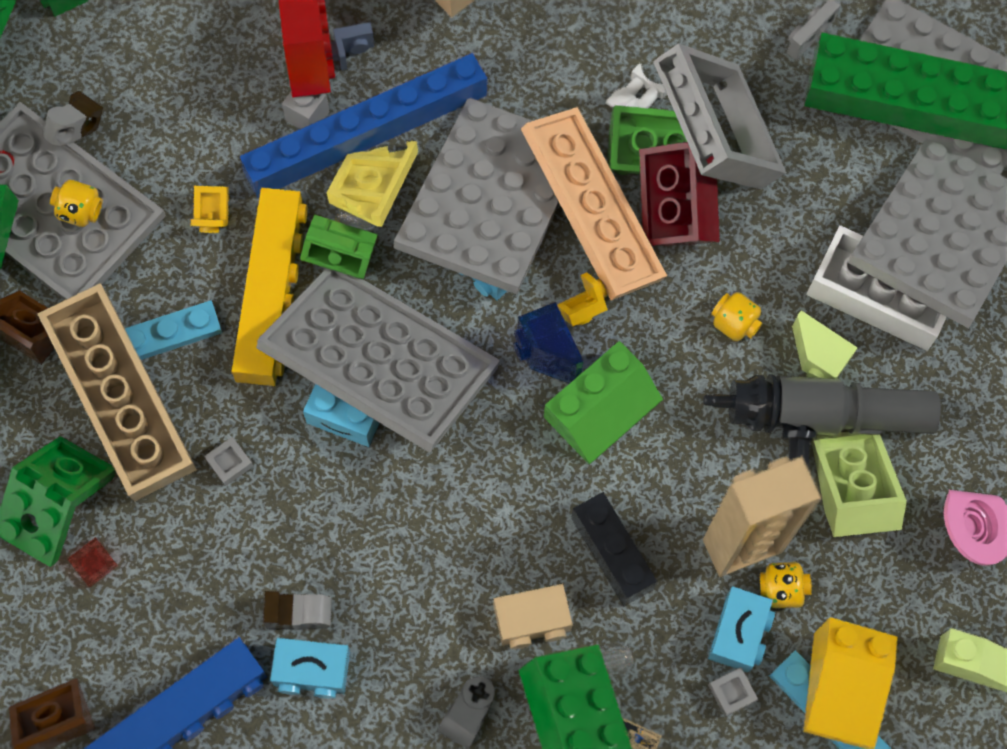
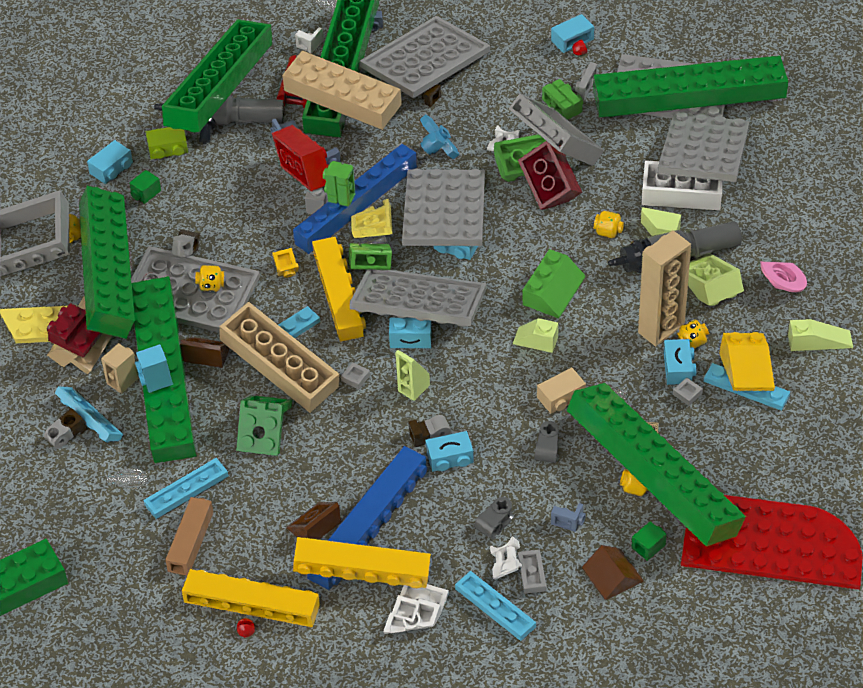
camera: 15 degrees left, 20 degrees down
(92, 562) = (300, 446): clear red tile -> none
(307, 504) = (411, 376): none -> yellowish green slope
(332, 107) = (339, 183): none -> bright green brick
(535, 58) = (437, 138): none -> dark azure plant
(538, 491) = (538, 335): none -> yellowish green slope
(548, 344) = (511, 263): clear blue slope -> none
(585, 305) = (524, 240): yellow bracket -> none
(593, 203) = (504, 193): light nougat plate -> none
(613, 549) = (591, 347): black brick -> none
(761, 50) = (562, 99): none -> bright green brick

